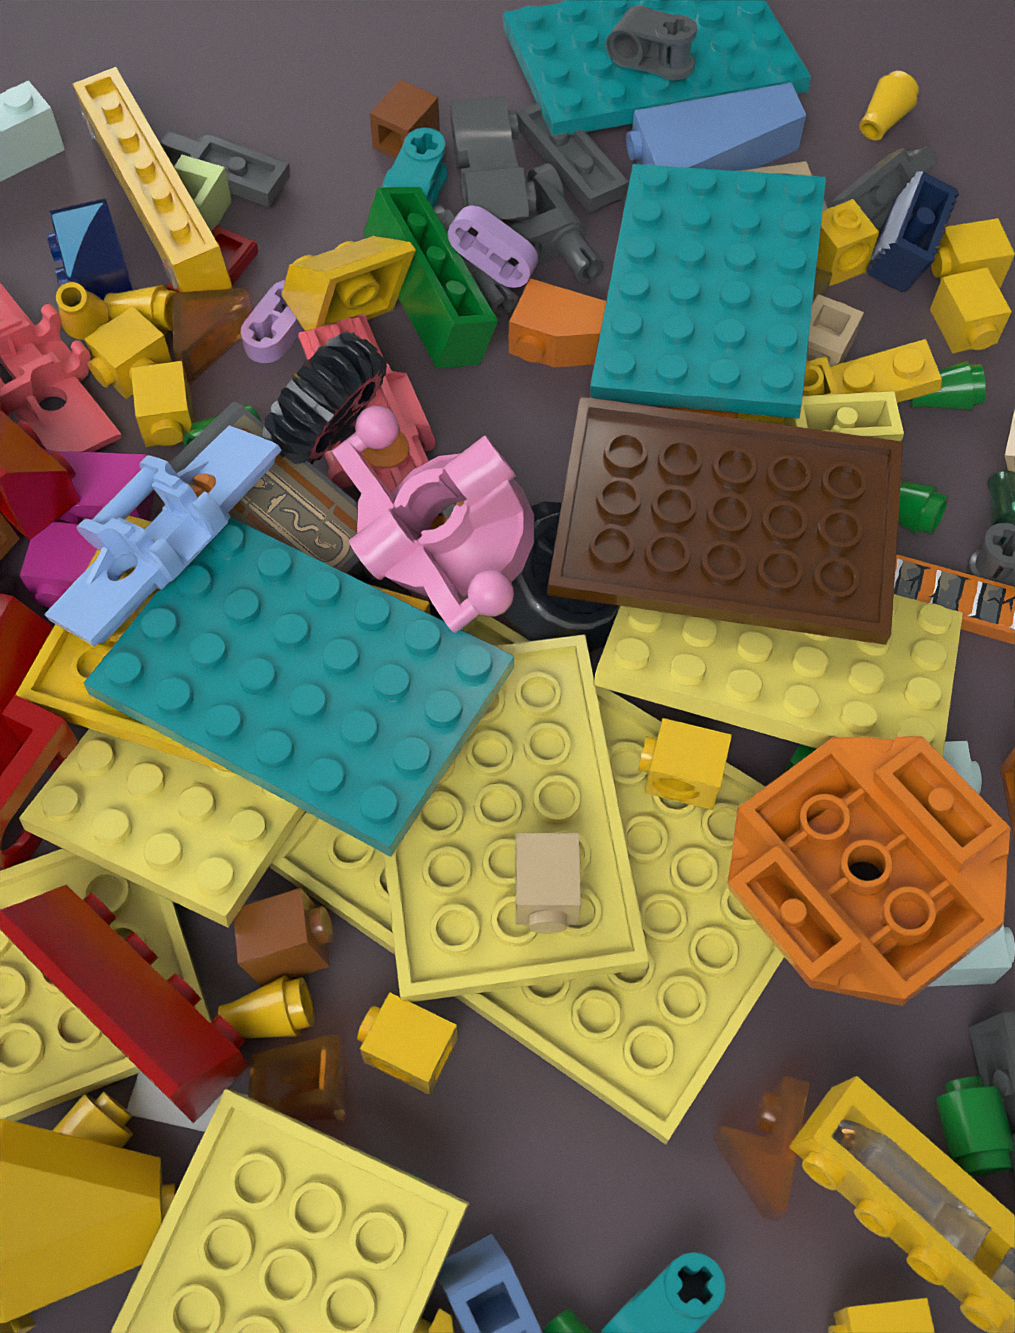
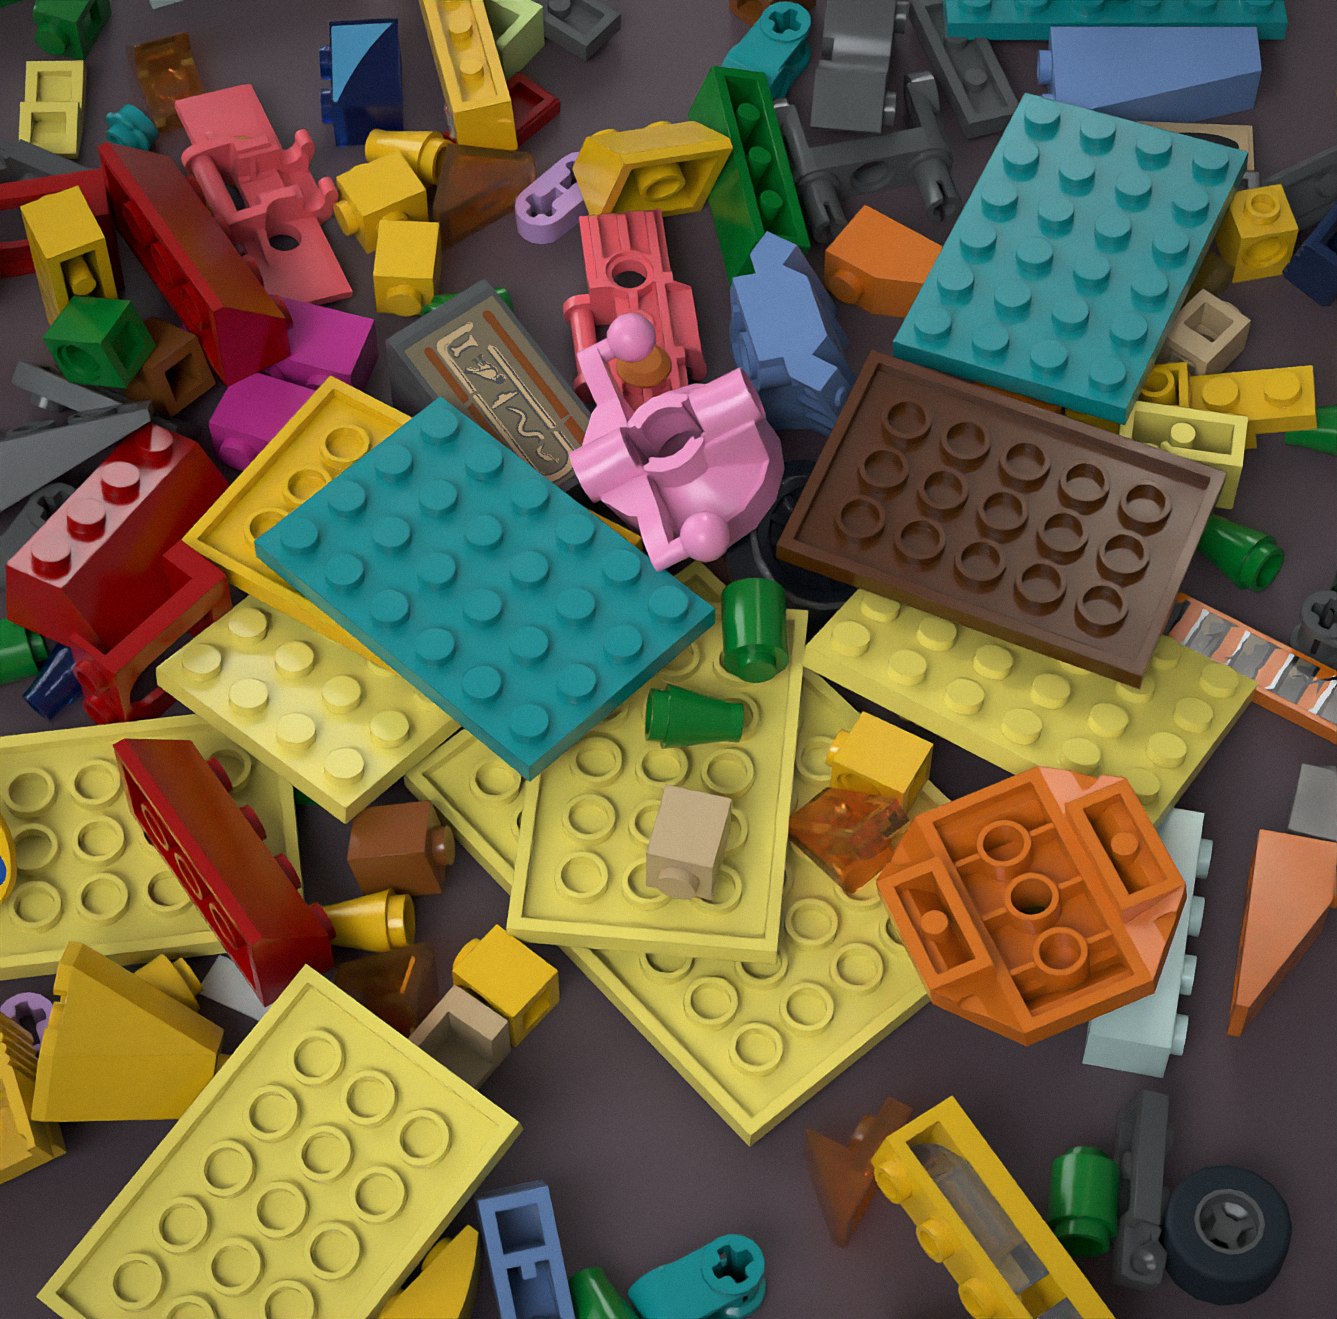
camera: 15 degrees right, 5 degrees down
(80, 310) = (339, 144): yellow cone -> none
(192, 516) = (412, 387): light blue piece -> none
(325, 398) = (583, 294): black gear -> none
(381, 1114) = (464, 1037): none -> tan panel
(493, 246) = (828, 160): lavender beam -> none
(499, 399) = (789, 339): none -> medium blue slope
(514, 759) = (690, 718): none -> green cone
(549, 664) = (754, 629): none -> green brick
(676, 829) = (847, 834): none -> clear orange slope

